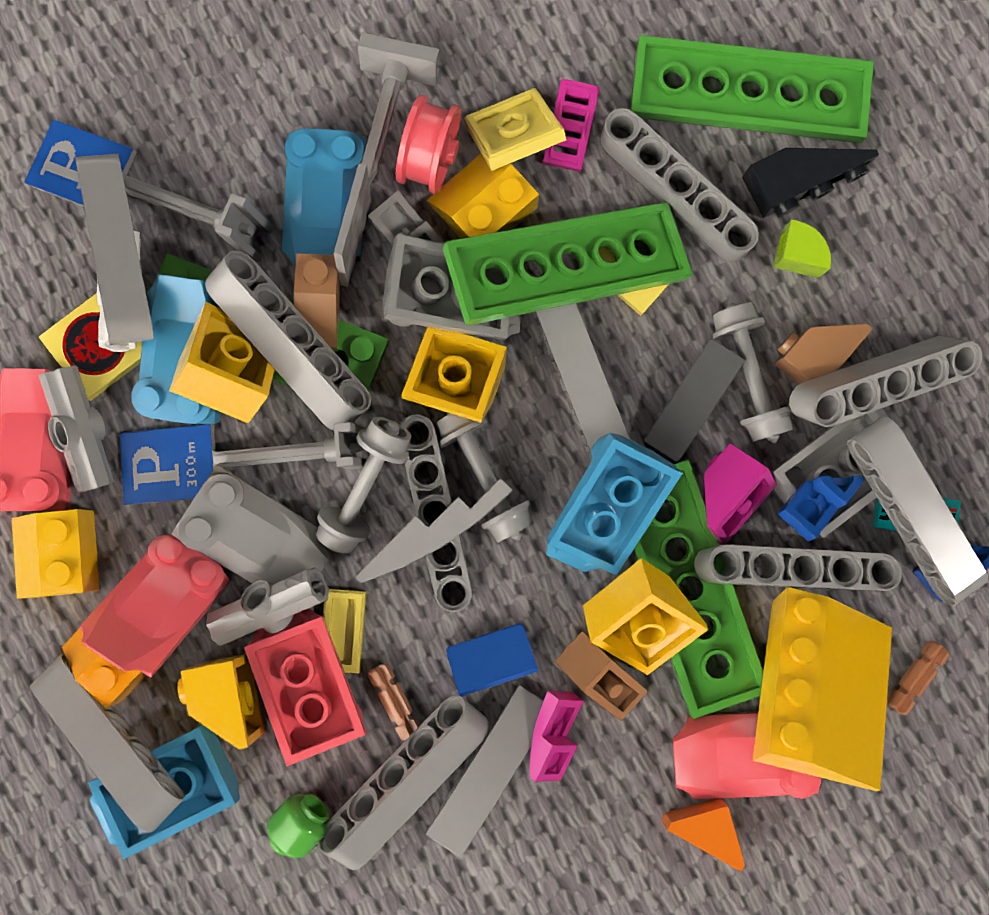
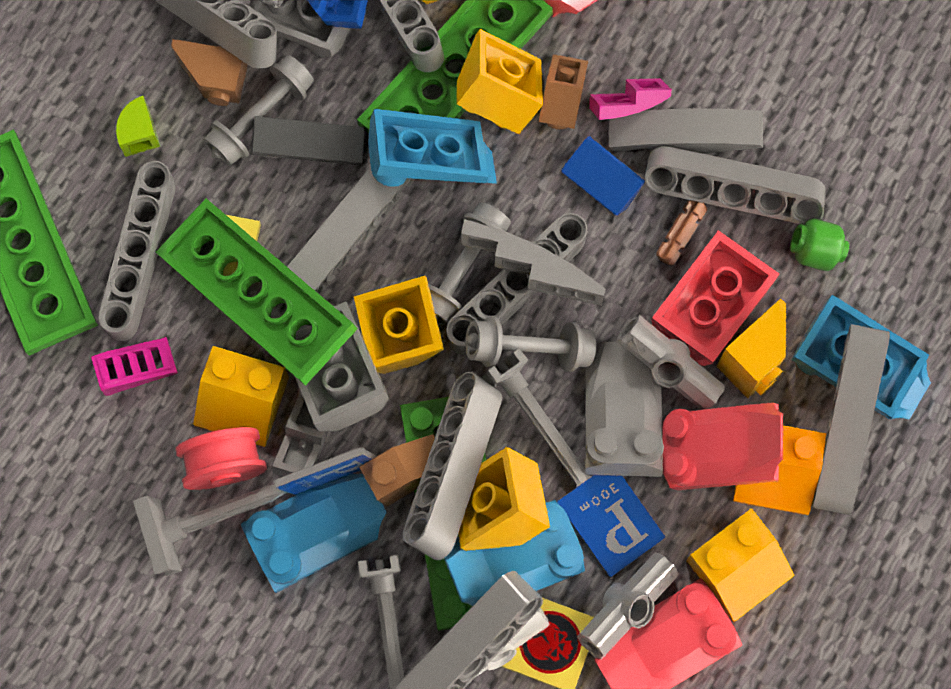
camera: 115 degrees left, 10 degrees down
(345, 621) = (646, 300): light yellow tile -> none
(514, 128) = (165, 403): light yellow tile -> none
(733, 491) = (360, 72): dark pink slope -> none
(802, 172) = (81, 169): black slope -> none

